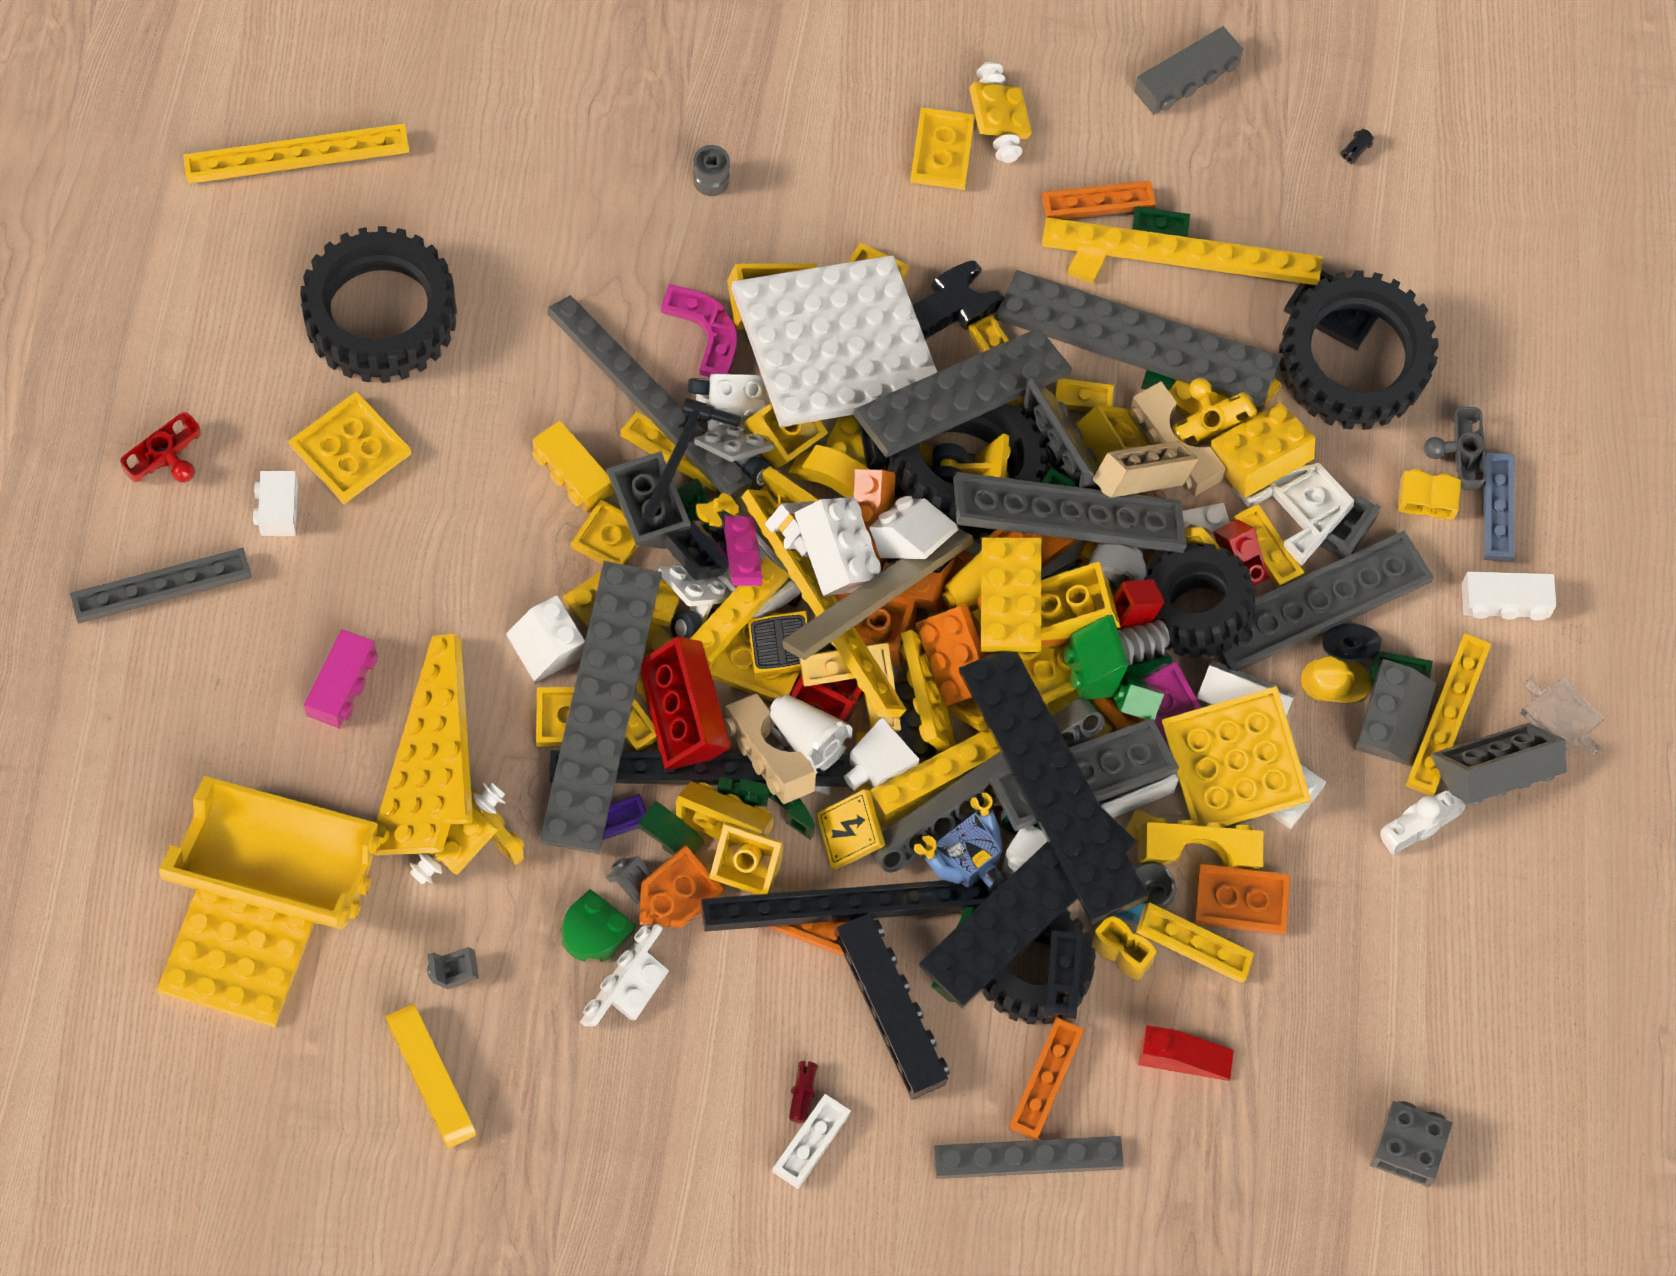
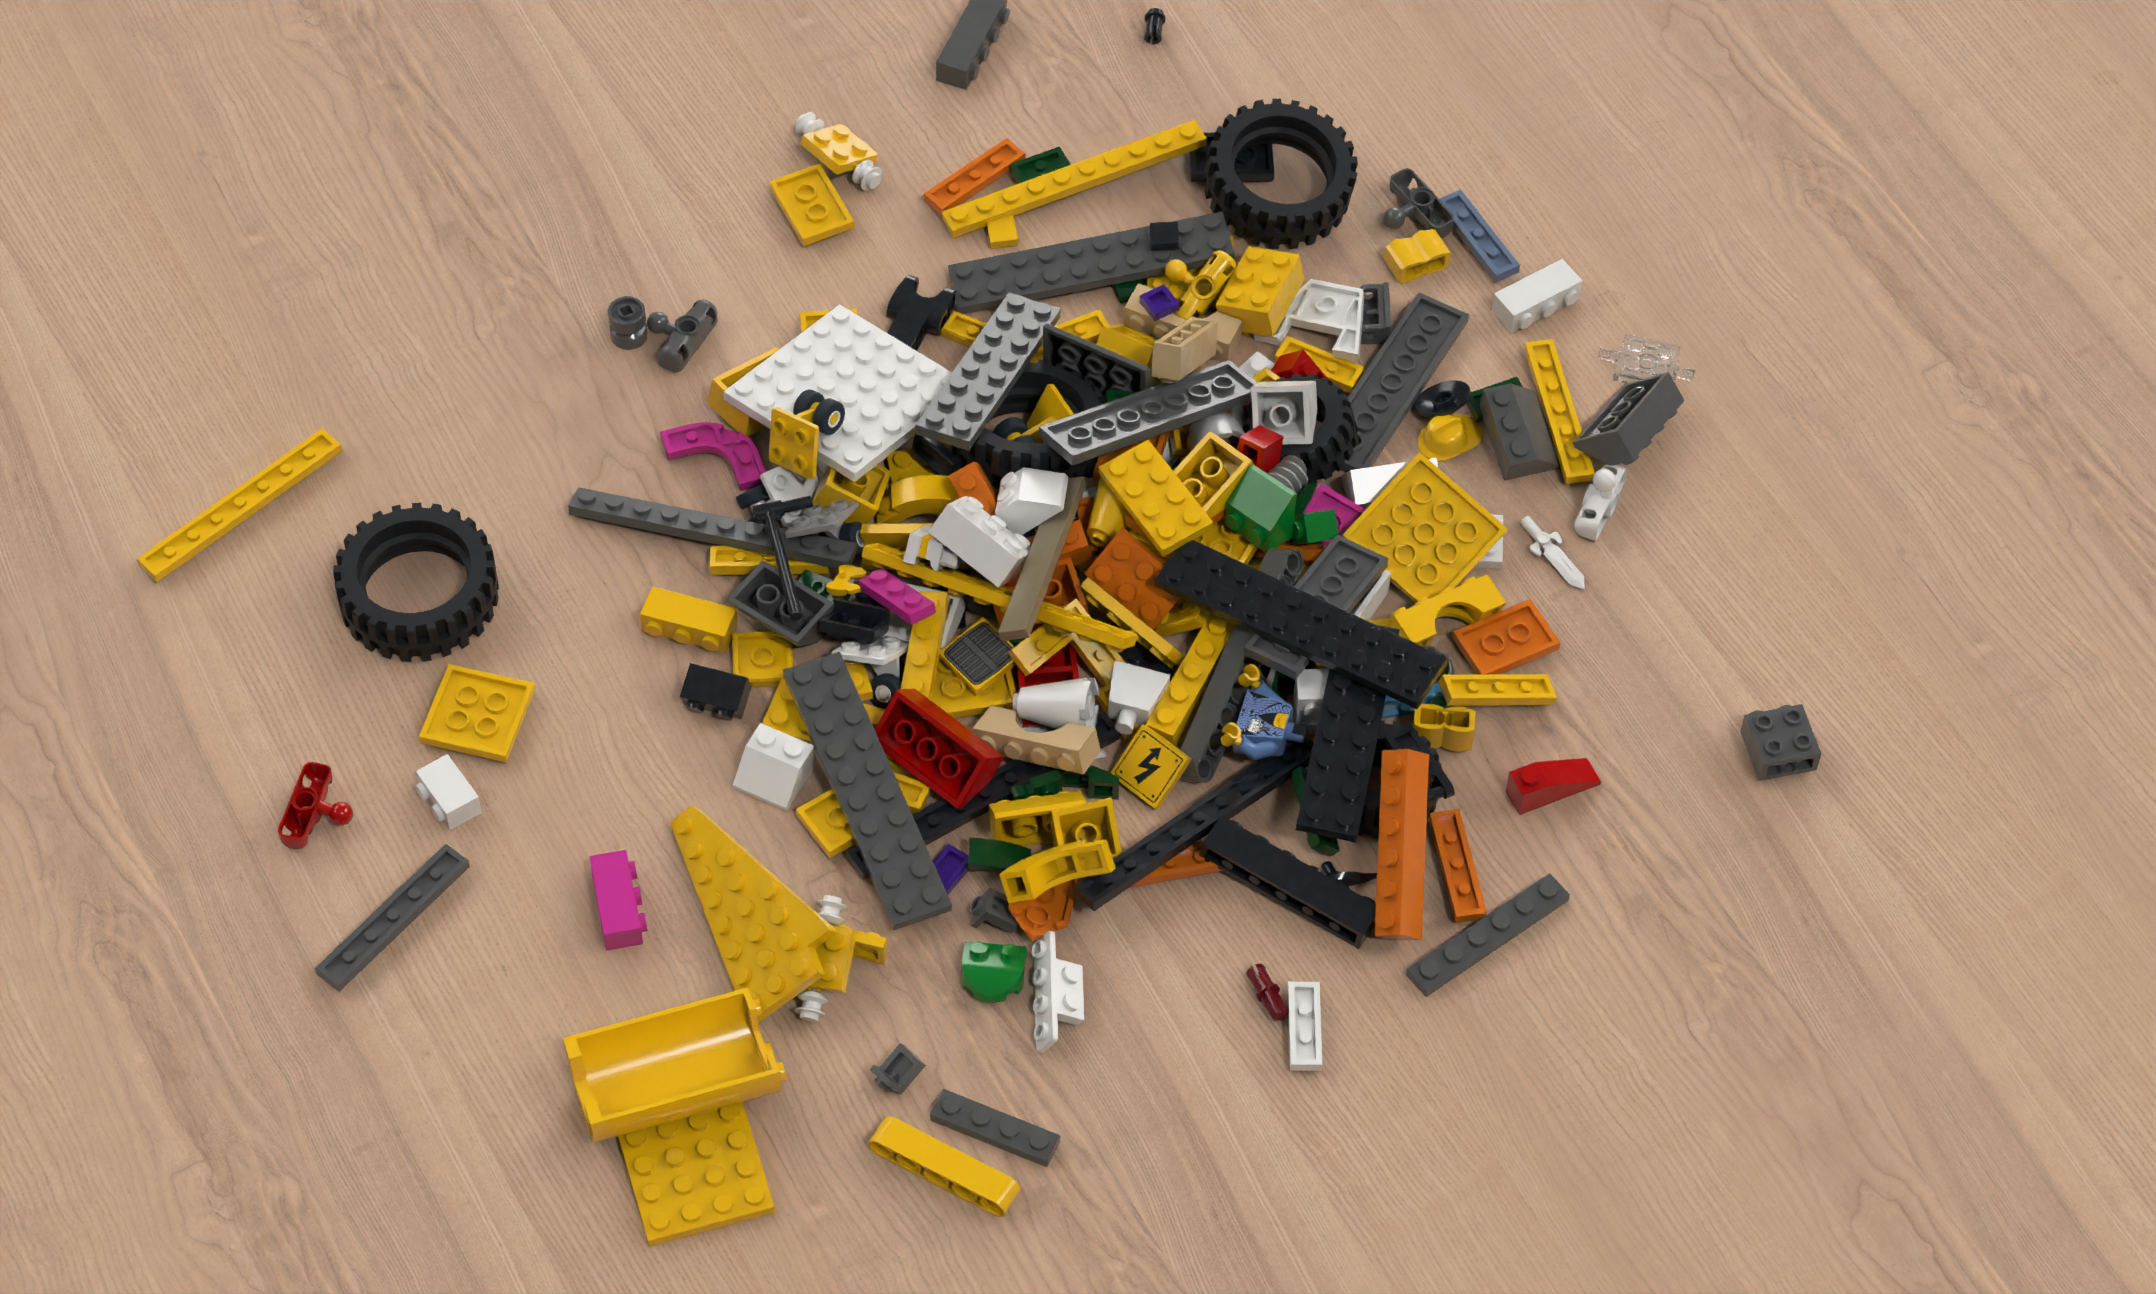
camera: 30 degrees left, 10 degrees down
(497, 1067) = (995, 1128): none -> dark grey plate
(547, 544) = (715, 692): none -> black brick
(694, 871) = (1055, 866): none -> yellow arch
(755, 356) = (797, 434): none -> yellow plate
(766, 202) = (685, 335): none -> dark grey piece
(944, 1030) = (1348, 878): none -> black bar
(997, 1036) = (1401, 844): none -> orange brick
(1164, 410) = (1159, 302): none -> dark purple tile
(1187, 578) = (1286, 409): none -> white slope
(1211, 351) = (1164, 236): none -> black tile
(1346, 843) = (1553, 552): none -> white sword

